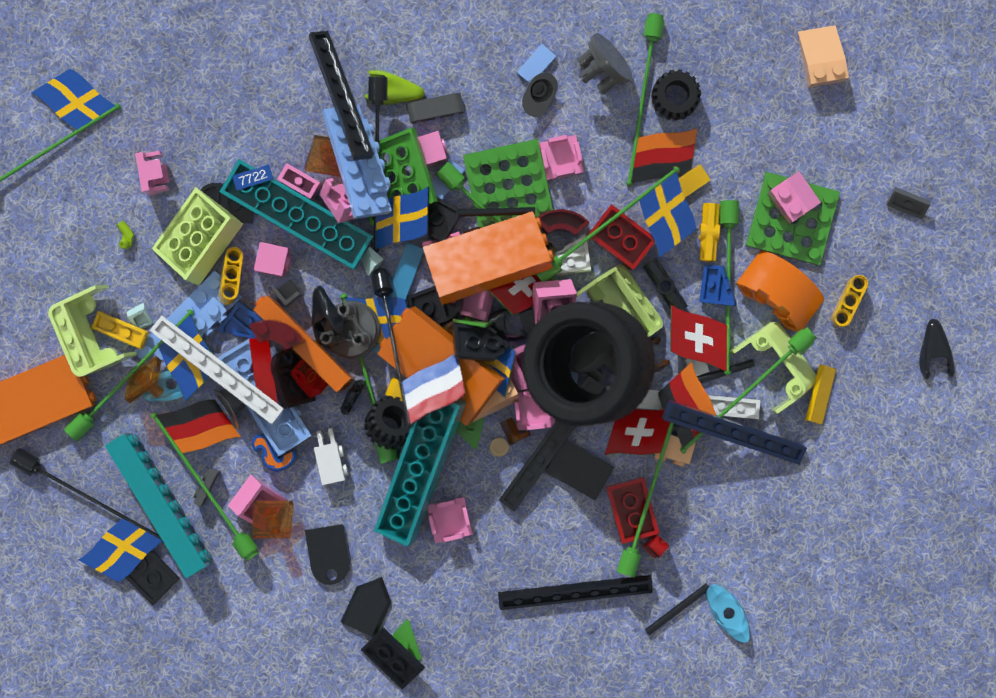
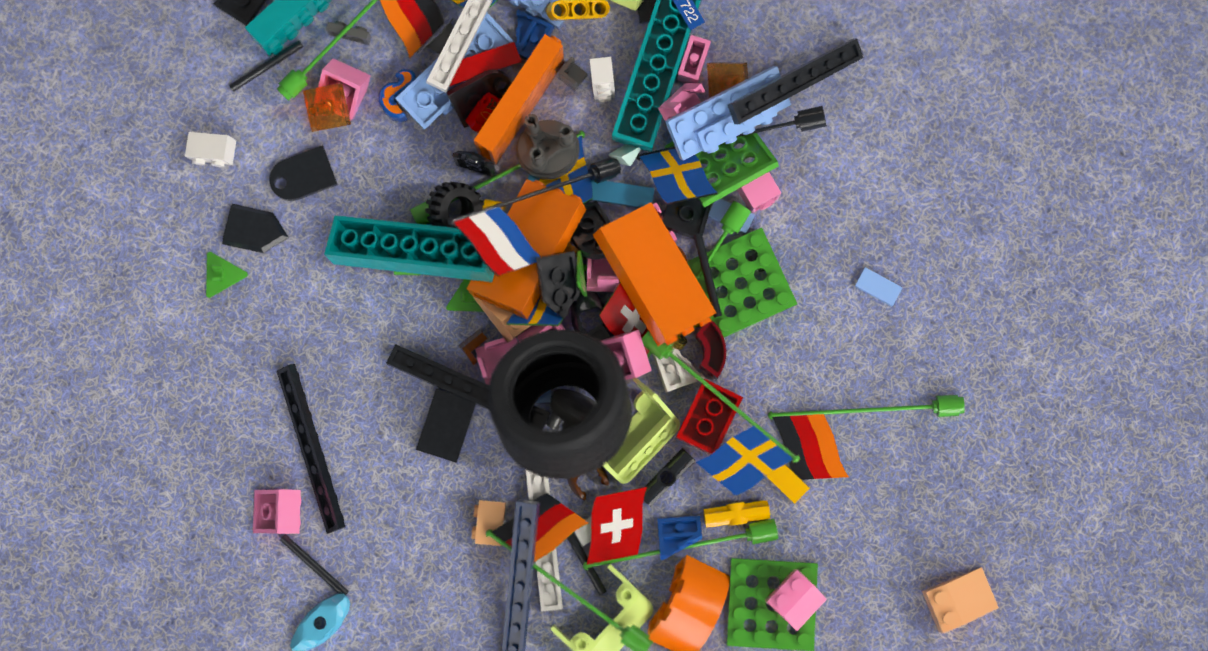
camera: 80 degrees right, 5 degrees down
(220, 567) = (266, 66): none -> black piece
(273, 260) = (605, 44): bright pink head -> none
(277, 331) = (525, 62): dark red brick -> none
(287, 631) = (210, 149): none -> white brick
(301, 266) = (602, 79): none -> white brick
(322, 309) = (561, 115): black animal -> none
(330, 460) = (403, 155): white hinge -> none
(392, 658) = (202, 265): black tile -> none
(399, 89) = (818, 144): lime animal -> none
(435, 107) = (807, 188): dark grey beam -> none
(449, 520) = (363, 296): bright pink panel -> none
(499, 447) = (453, 333): tan tile -> none
(539, 94) = (846, 295): dark grey piece -> none
(561, 157) = (783, 334): bright pink panel -> none
(606, 59) = (901, 360): dark grey piece -> none
(624, 632) = (277, 511): none -> bright pink slope
(627, 505) = (412, 491): red brick -> none
(639, 434) = (496, 480): flag -> none
(655, 546) = (379, 526): red leg -> none
(687, 83) = (897, 439): black tyre -> none

